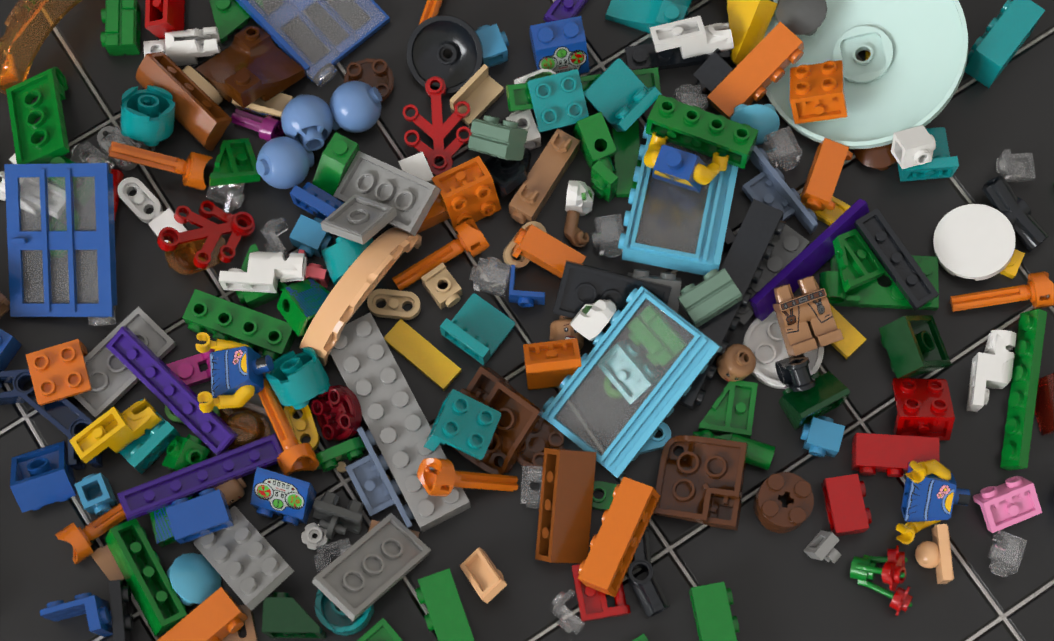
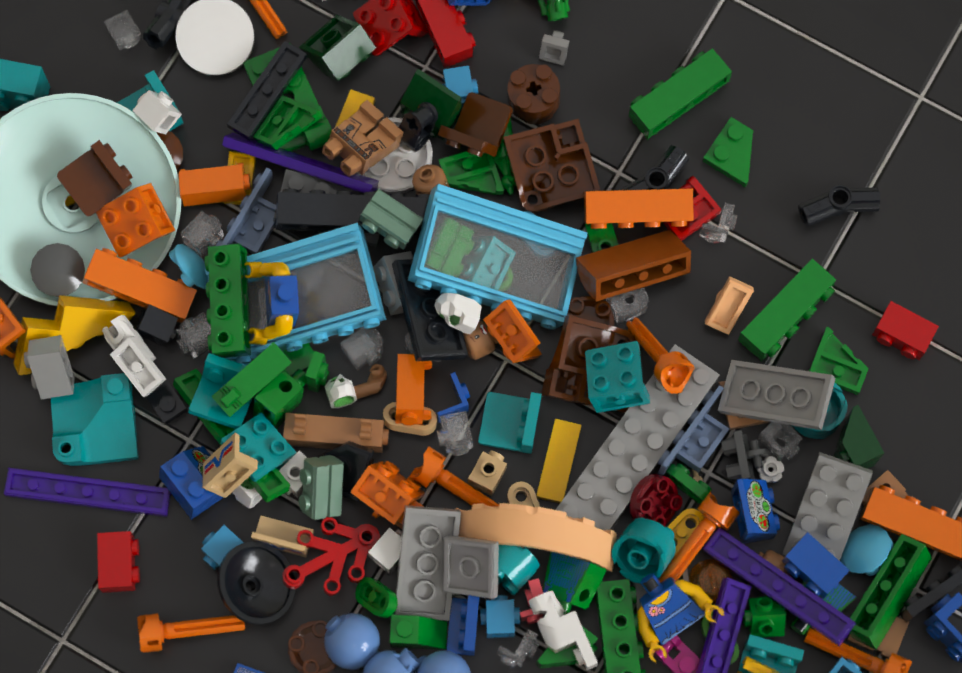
camera: 120 degrees left, 0 degrees up
(381, 143) = (376, 597): none -> green plate
(547, 58) = (227, 468): none -> tan panel
(618, 116) = (251, 379): none -> green hinge
(768, 429) = (479, 125): none -> reddish brown bracket
(846, 505) = (509, 45): red brick -> none
(869, 66) = (95, 178): none -> reddish brown bracket

